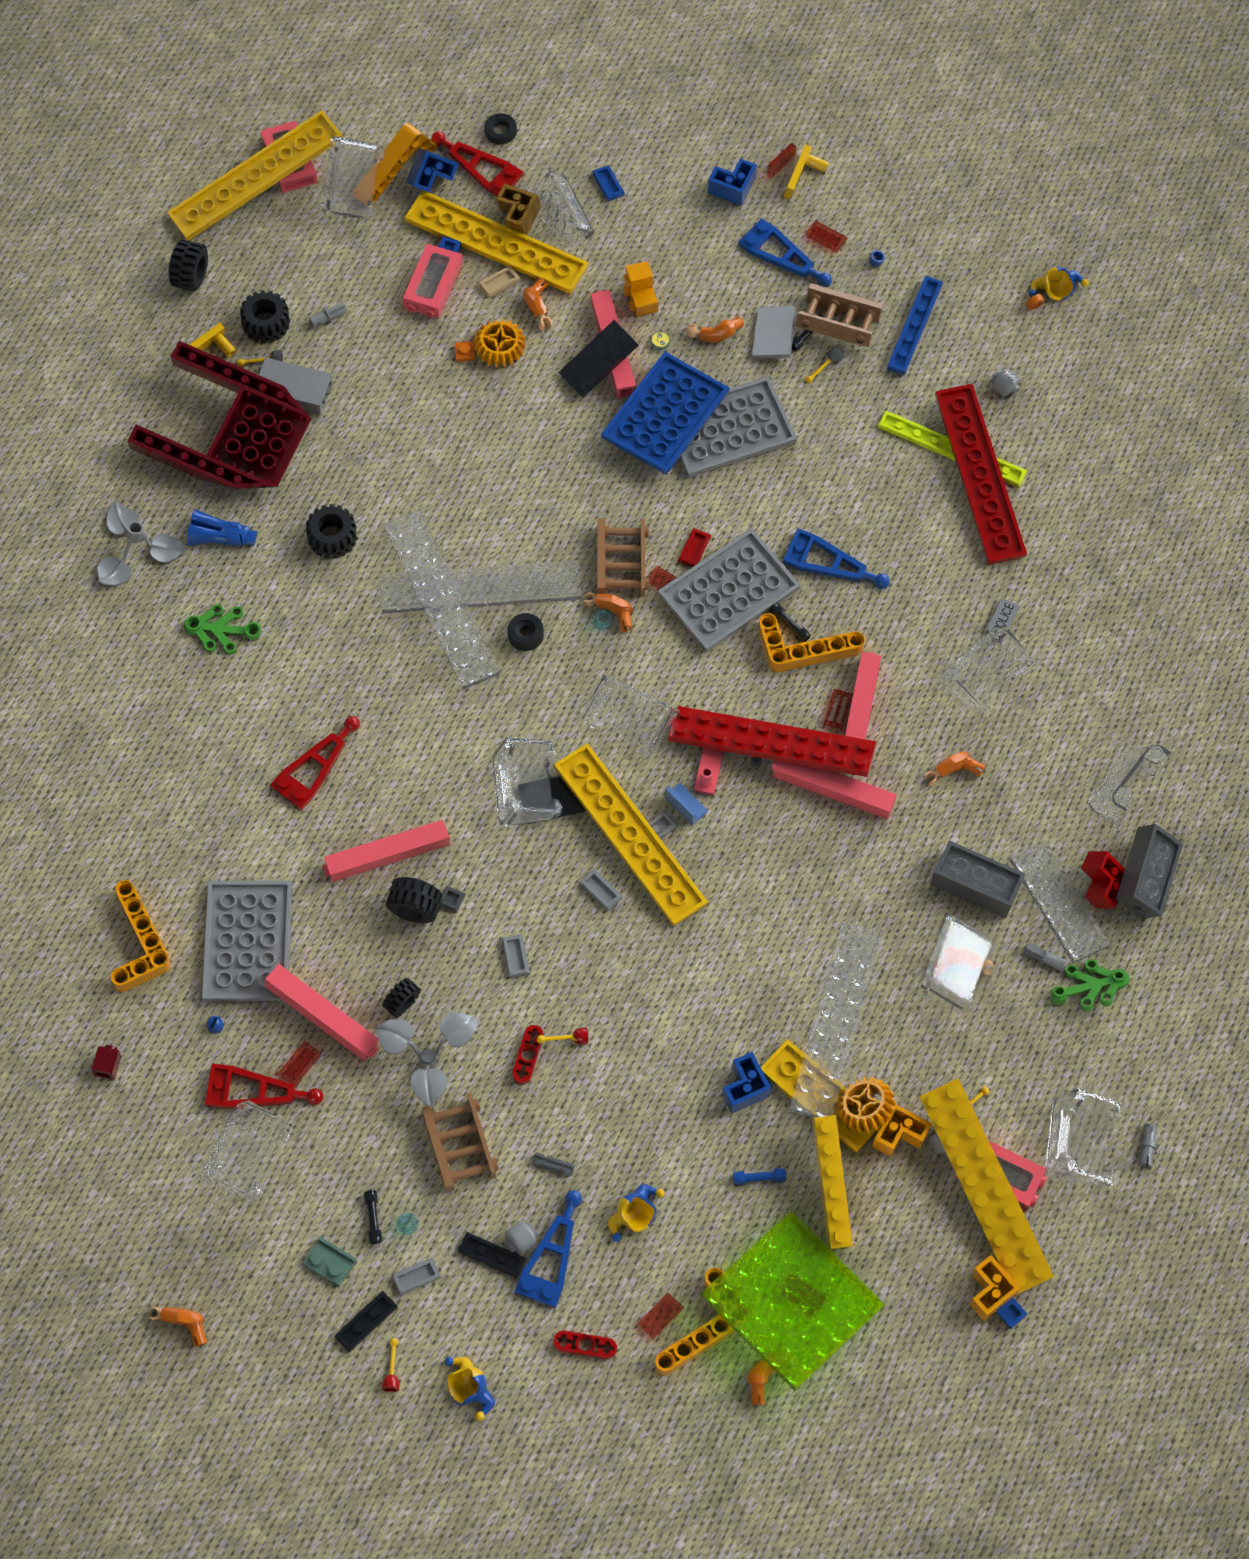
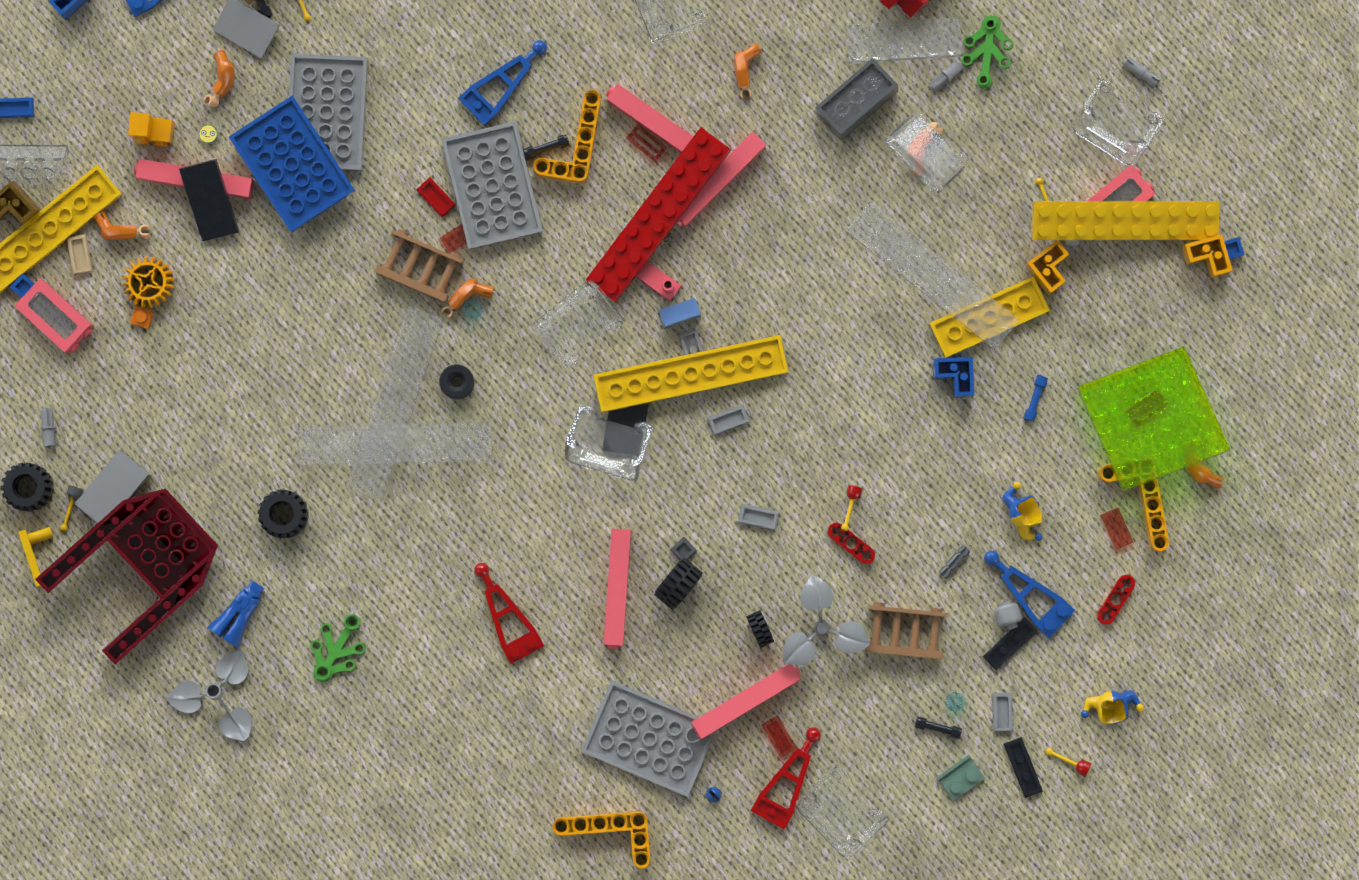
camera: 65 degrees left, 20 degrees up
(832, 1182) = (1071, 343): yellow brick -> none
(862, 1098) = (1013, 280): light orange gear -> none

